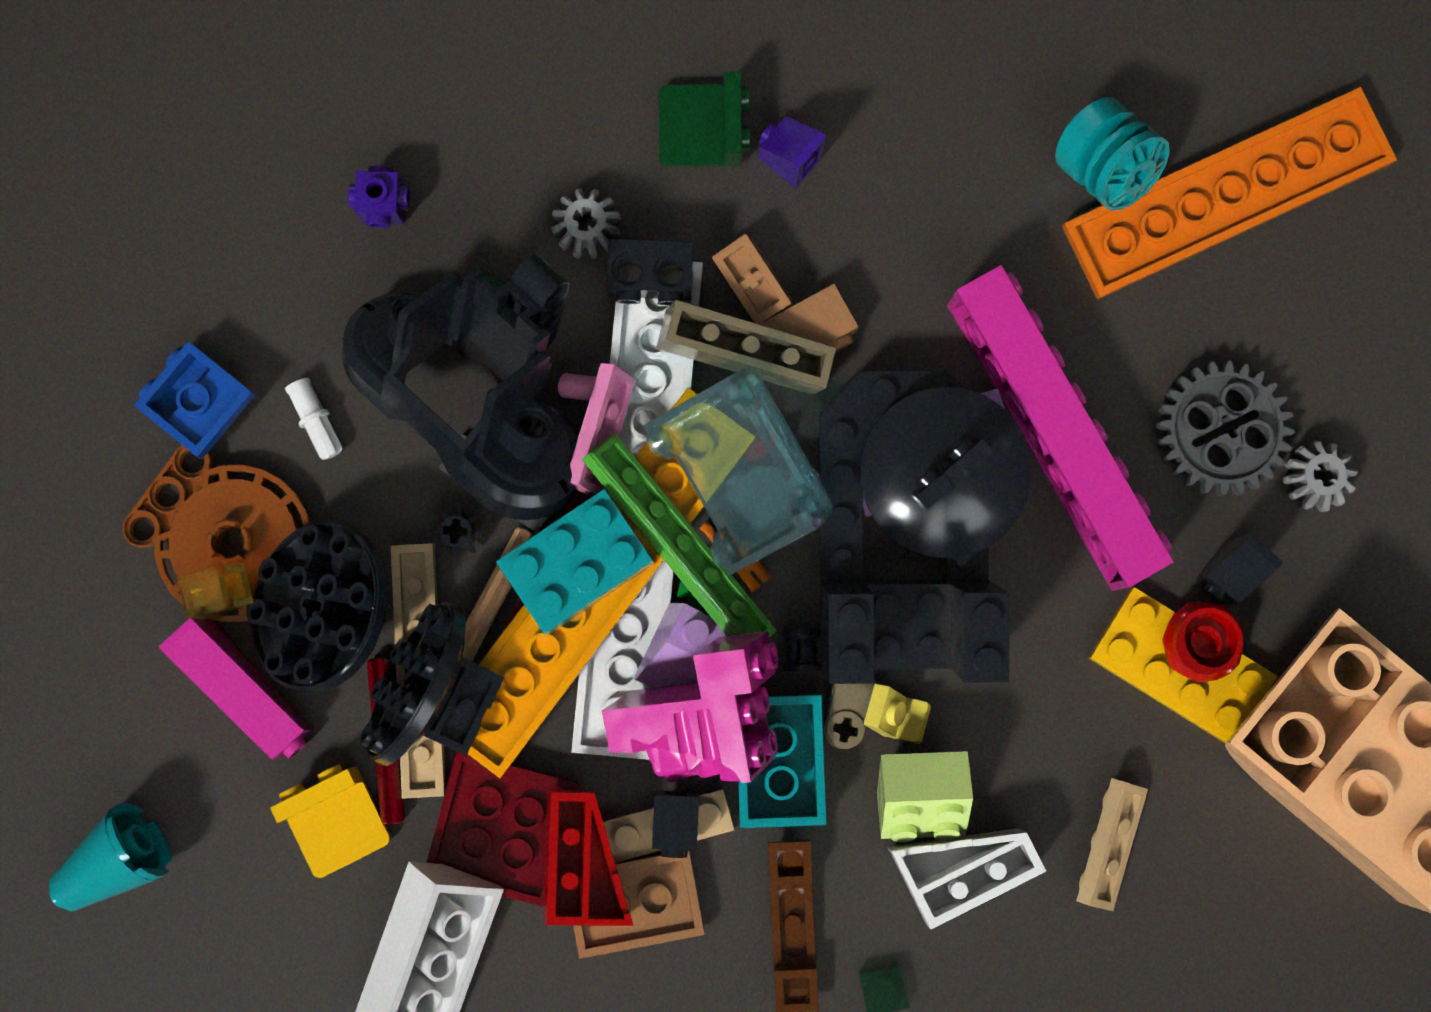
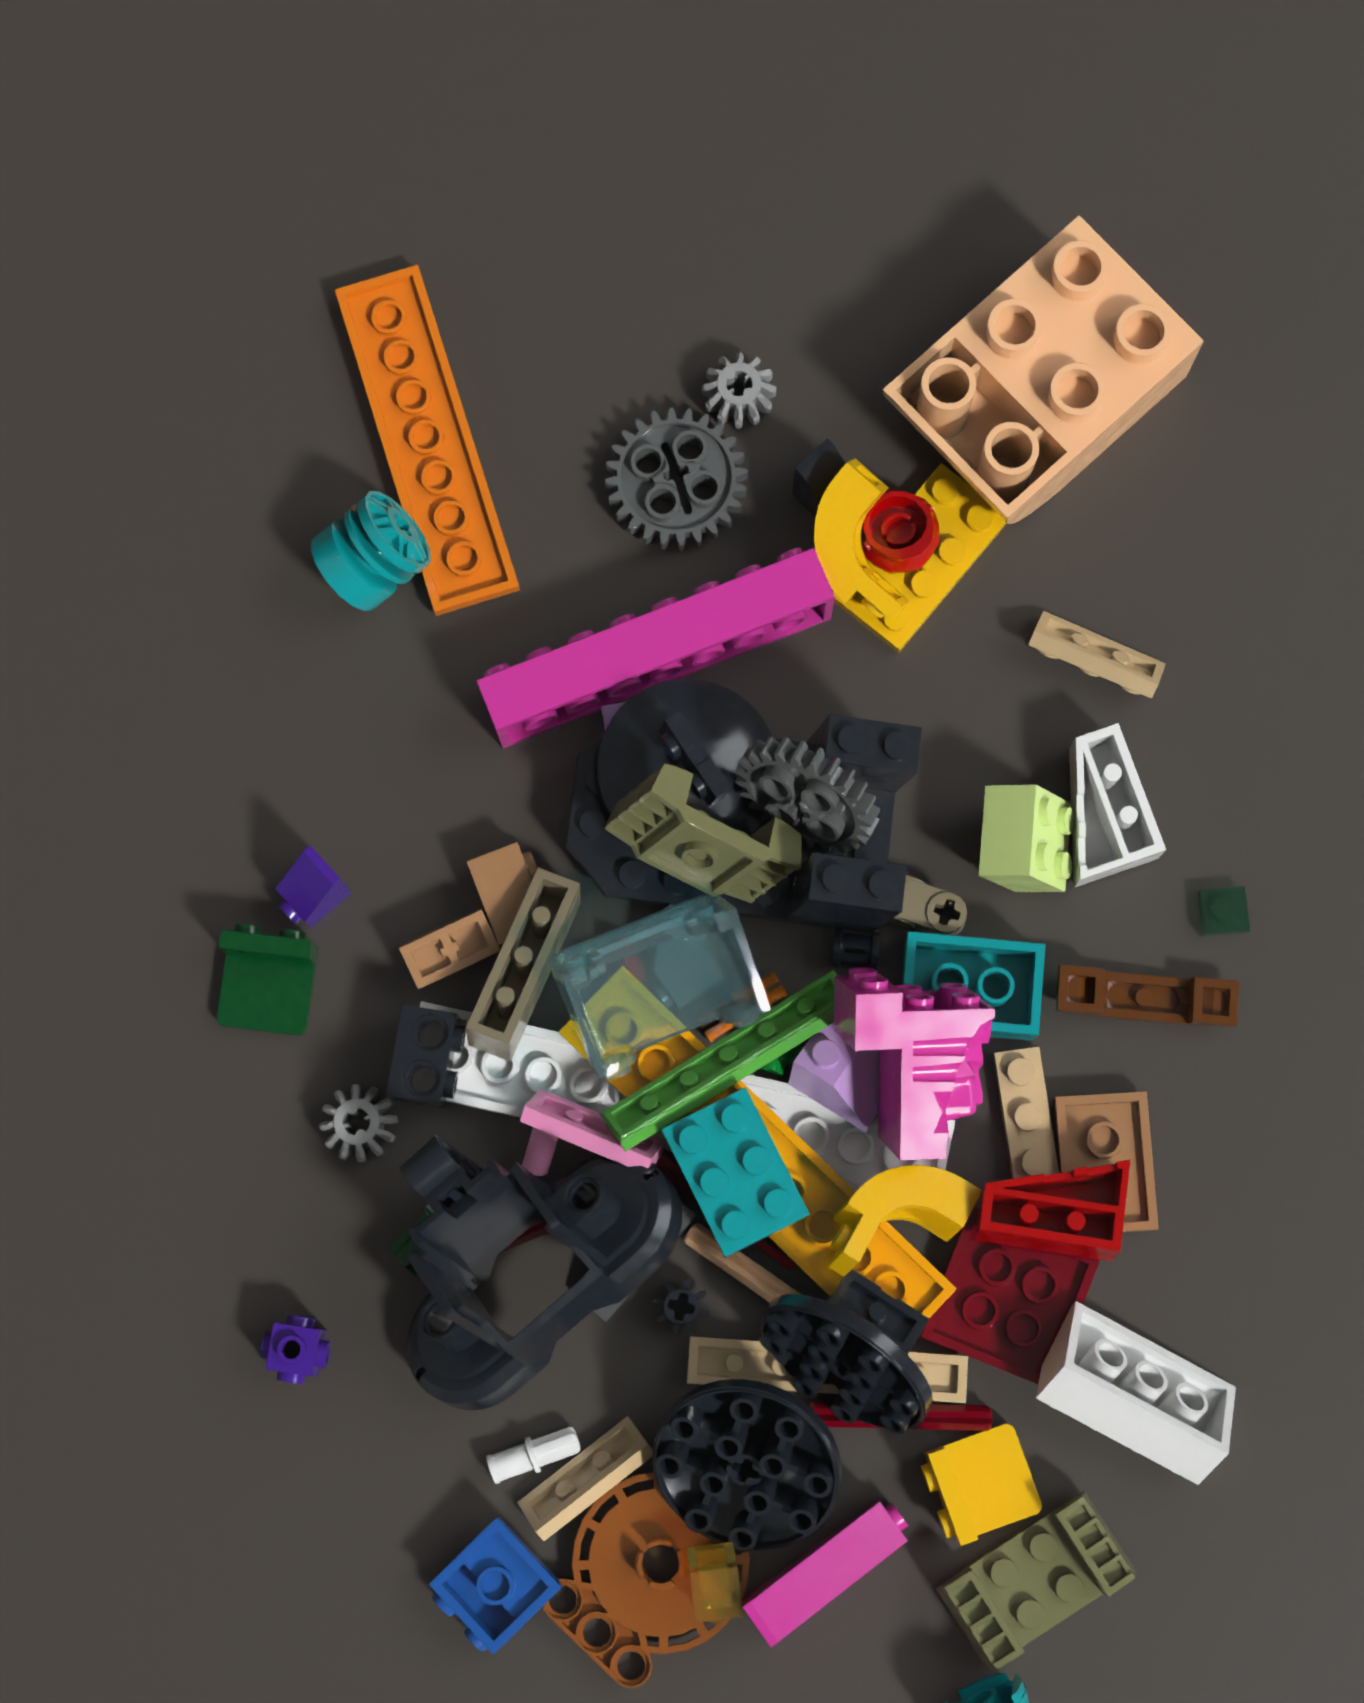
camera: 80 degrees left, 5 degrees down
(254, 880) = (1036, 1580): none -> olive plate
(297, 467) = (585, 1478): none -> tan plate
(580, 730) = (907, 1193): none -> yellow arch
(675, 822) = (1025, 1101): black brick -> none
(867, 488) = (698, 847): none -> olive plate
(897, 715) = (937, 857): light yellow bracket -> none
(931, 582) = (808, 793): none -> dark grey gear
(1182, 587) = (839, 540): none -> yellow arch

